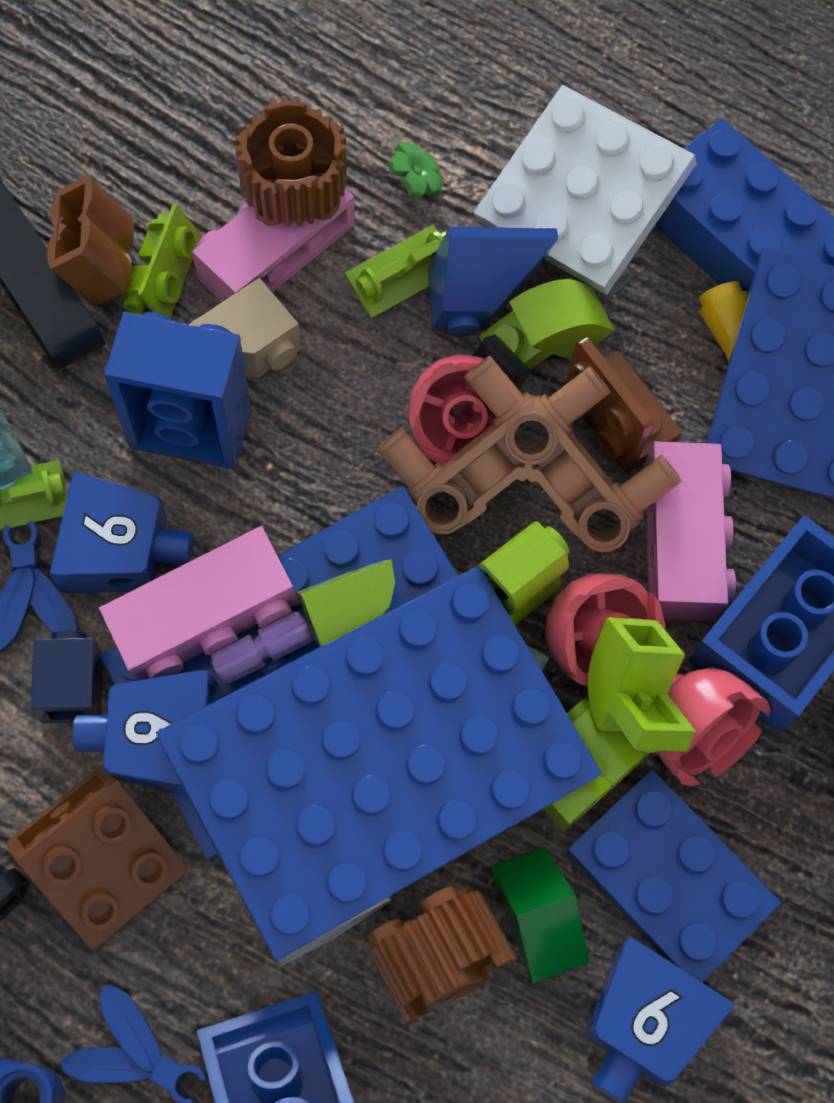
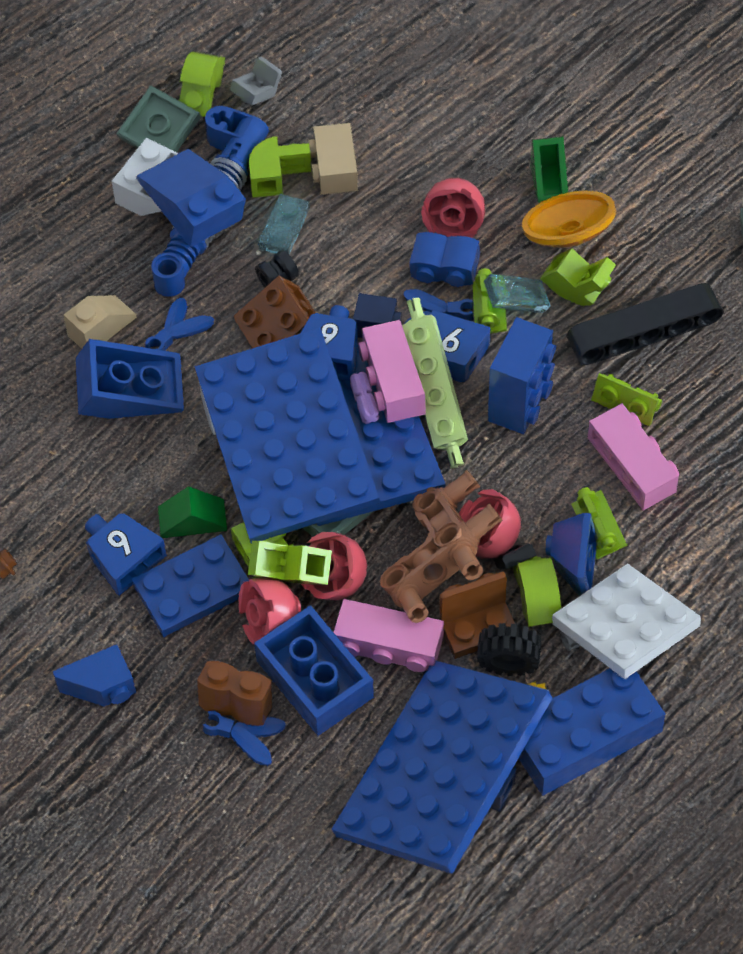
camera: 110 degrees right, 10 degrees down
(91, 241) = (639, 355): dark orange brick -> none
(138, 558) = (441, 402): none -> yellowish green plate
(265, 328) = (568, 430): tan slope -> none
(292, 163) = (660, 450): dark orange brick -> none
(348, 600) = (376, 431): lime brick -> none
(417, 170) = (671, 545): bright green plant -> none
(440, 951) = (182, 452): dark orange brick -> none
(527, 569) = (375, 531): lime brick -> none
(672, 343) = (509, 649): none -> black tyre

